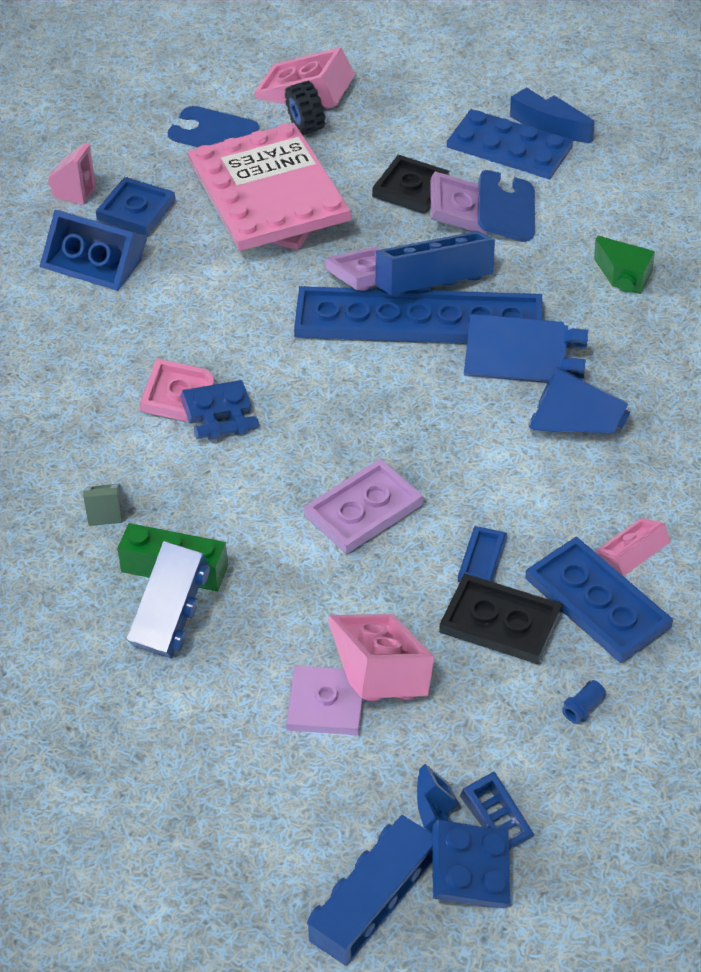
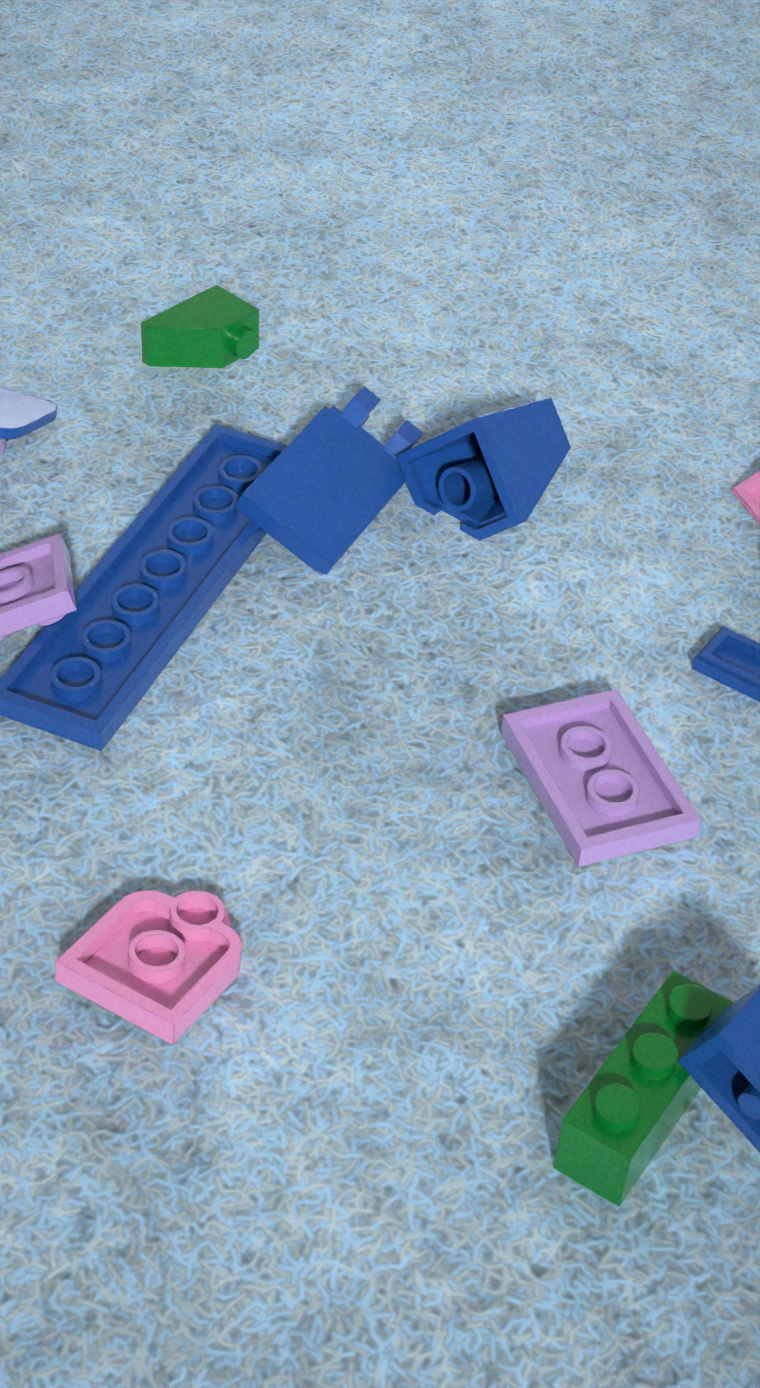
camera: 75 degrees left, 5 degrees down
(103, 504) = (420, 1170): sand green slope -> none
(216, 402) = (238, 902): blue plate -> none
(434, 263) = (83, 500): blue brick -> none

